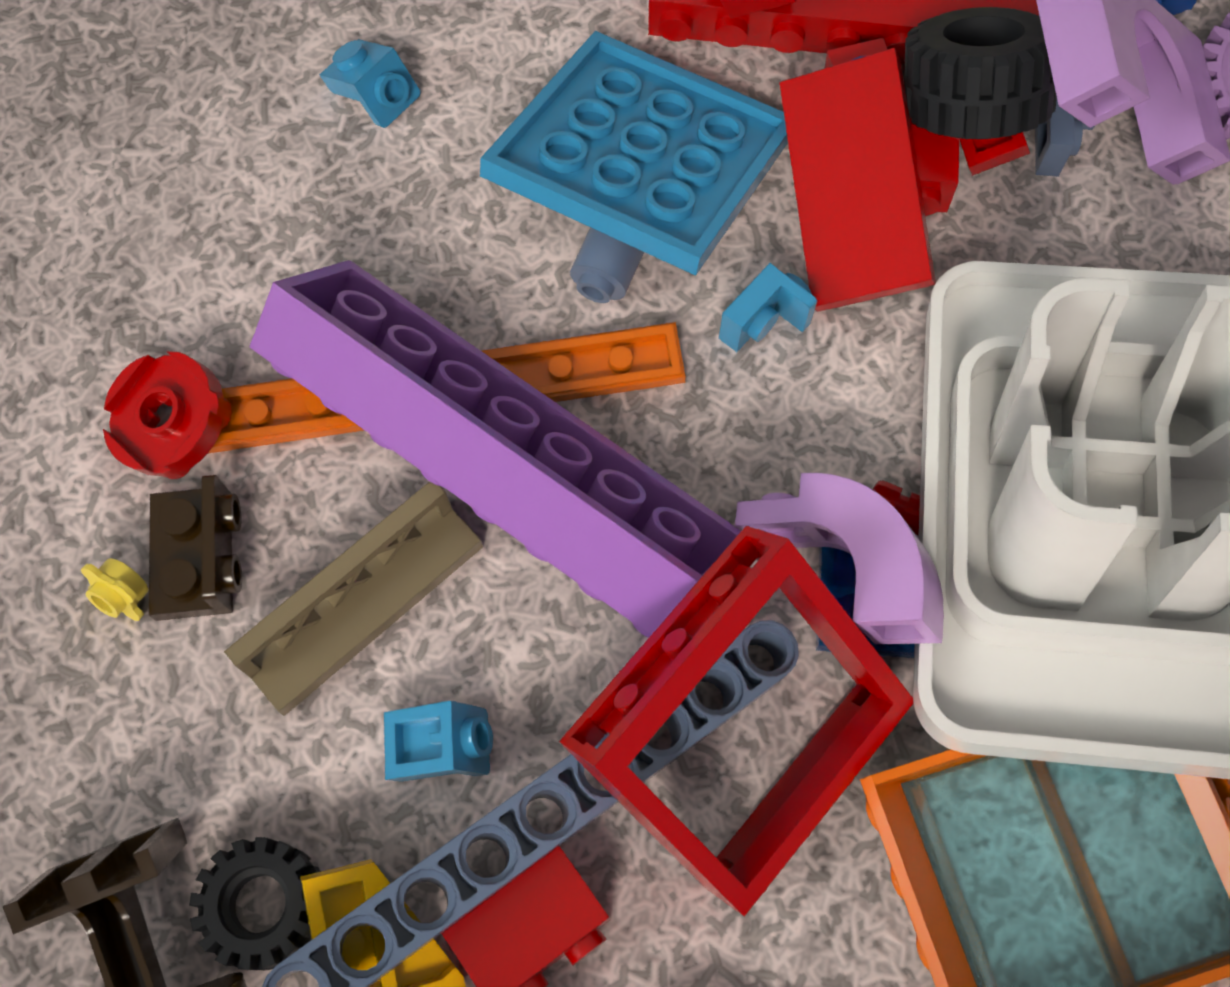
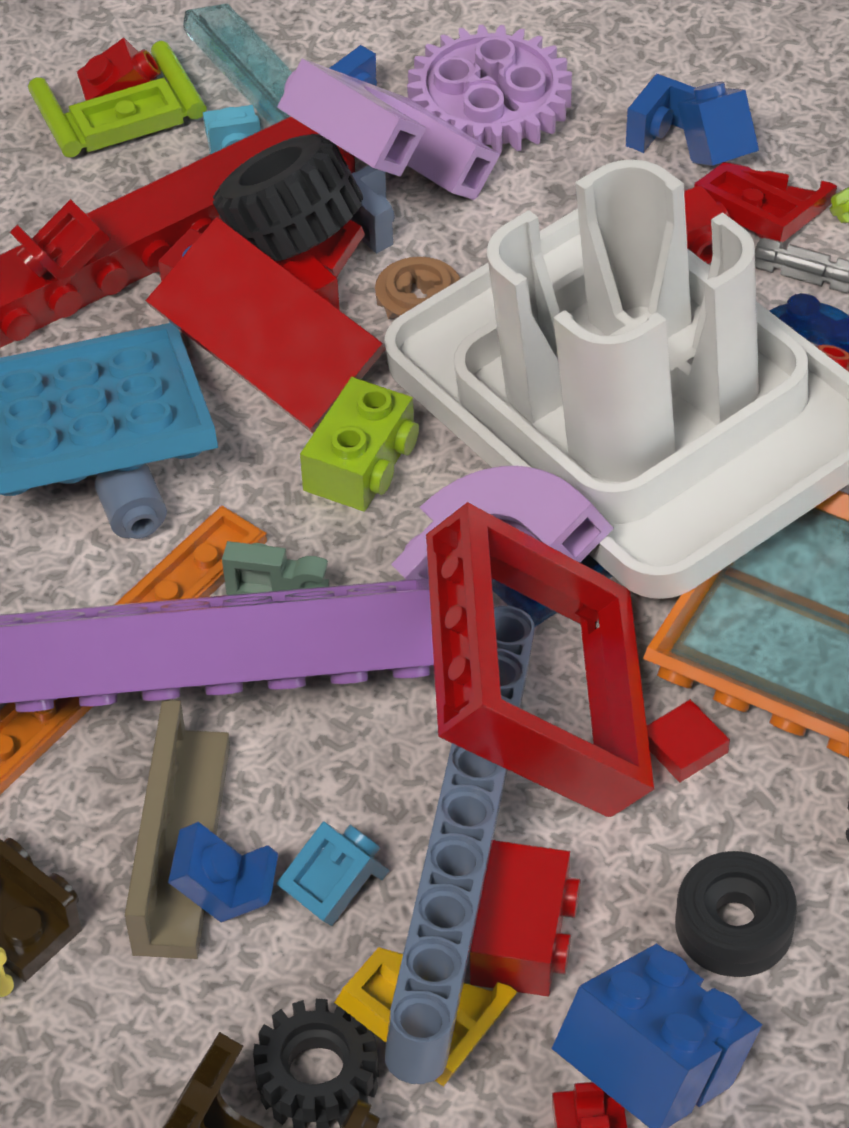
camera: 45 degrees left, 20 degrees down
(348, 668) = (219, 876): none -> blue bracket
(644, 415) = (266, 569): none -> sand green plate
(761, 304) = (280, 438): dark azure bracket -> none
(832, 879) = (686, 740): none -> red tile
(833, 356) = (359, 444): none -> lime brick
(1016, 219) = (396, 280): none -> medium nougat gear

